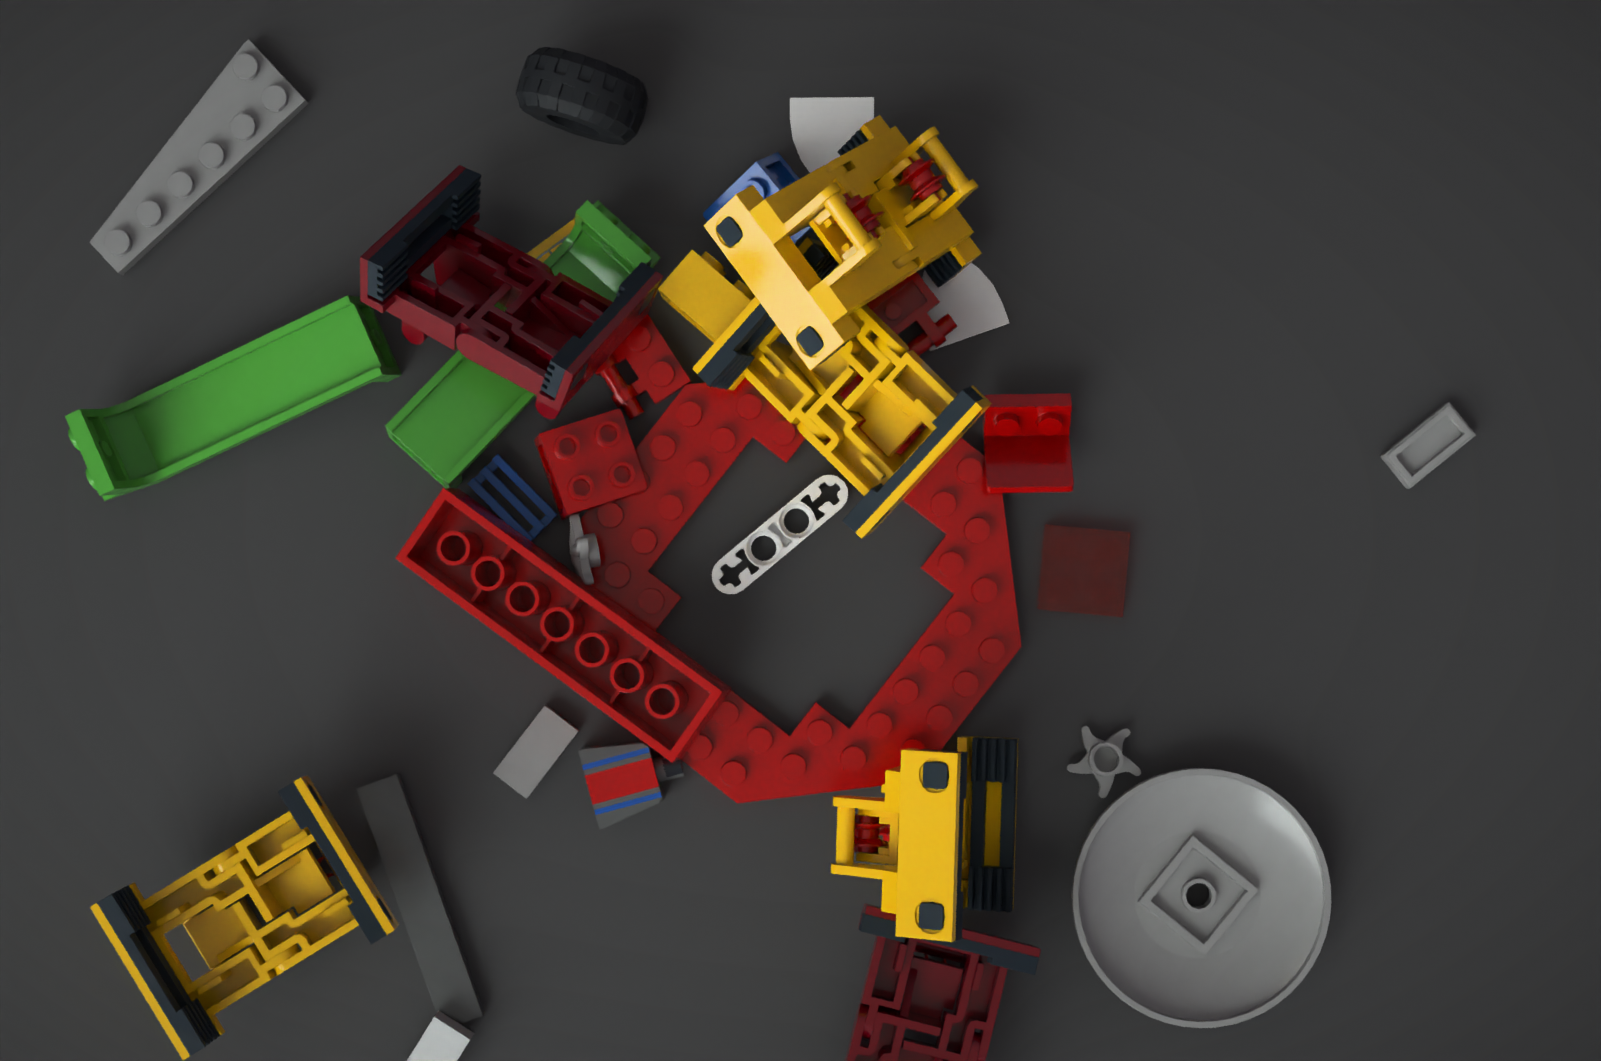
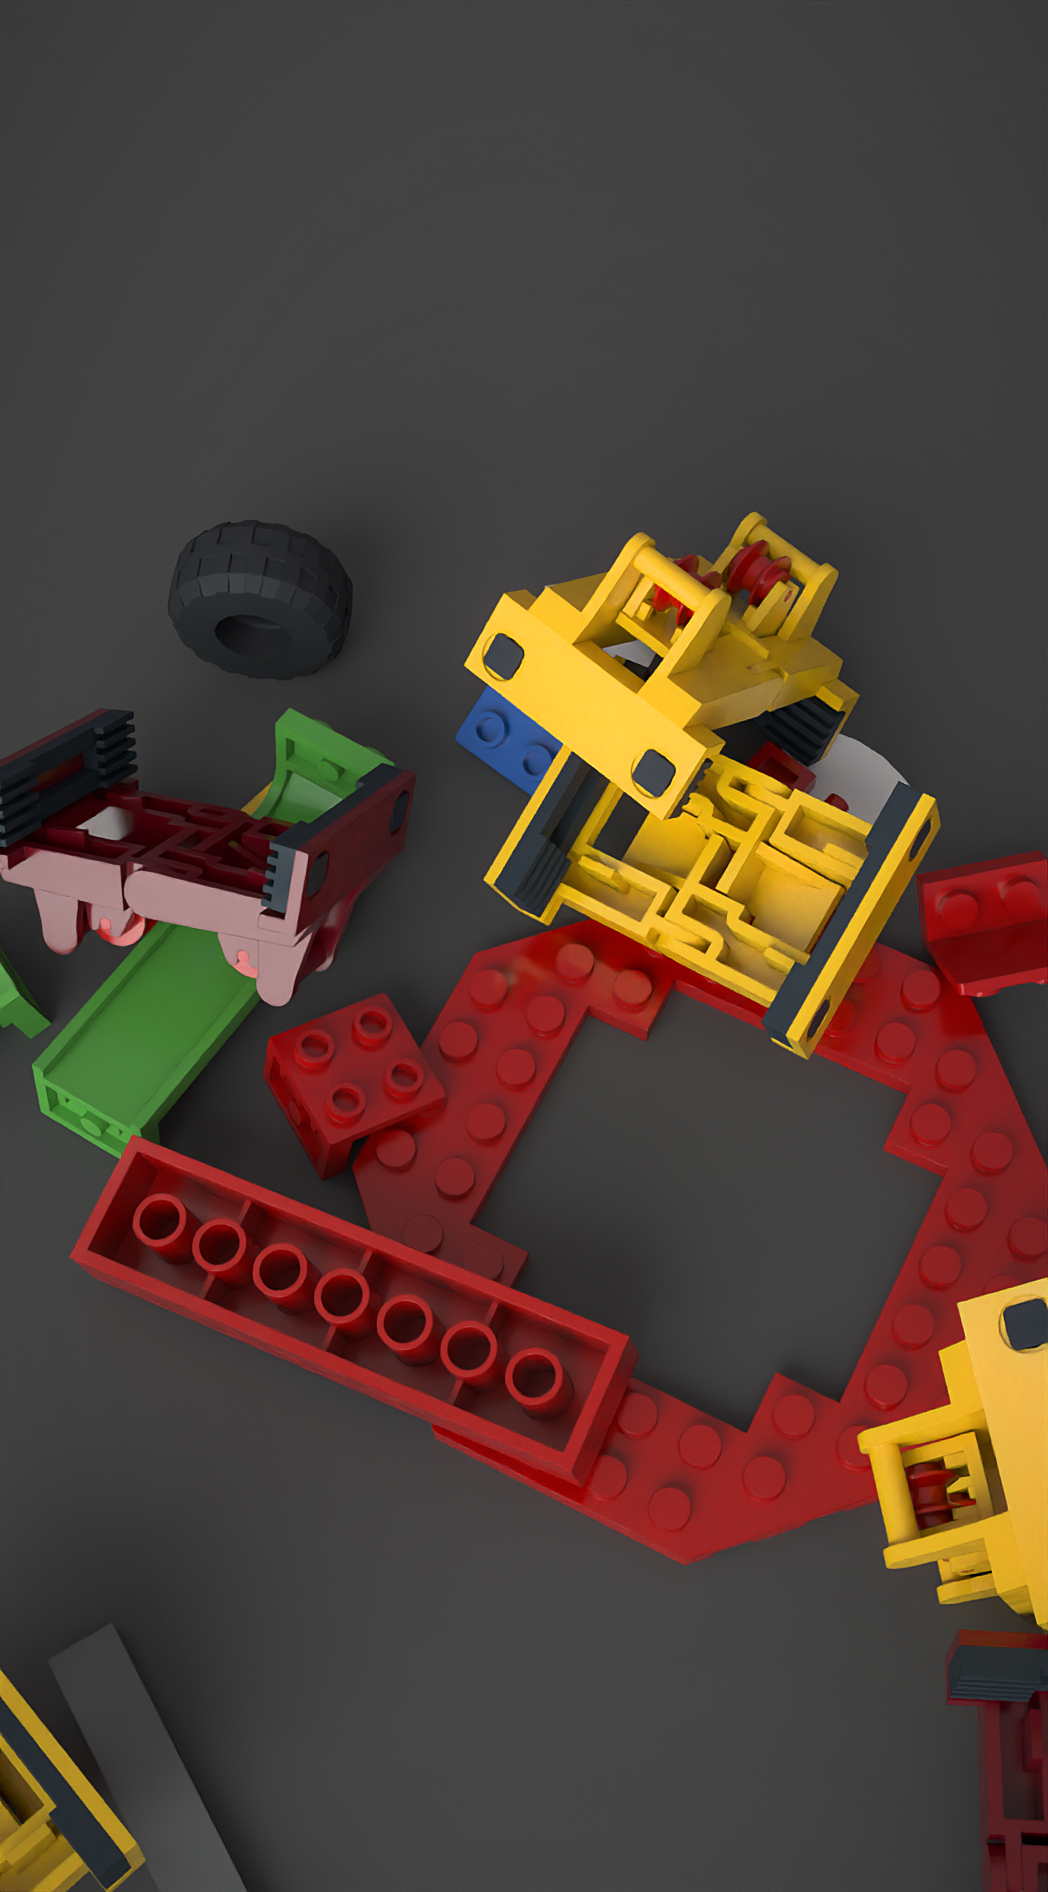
camera: 10 degrees left, 25 degrees down
(487, 473) = (215, 1114): blue tile -> none
(536, 751) = (339, 1542): light grey tile -> none
(583, 550) = (364, 1193): light grey animal -> none
(625, 779) = (496, 1551): torso -> none
(652, 362) = (415, 932): red plate -> none
(704, 294) = (469, 811): yellow piece -> none
(775, 529) = (666, 1140): white beam -> none

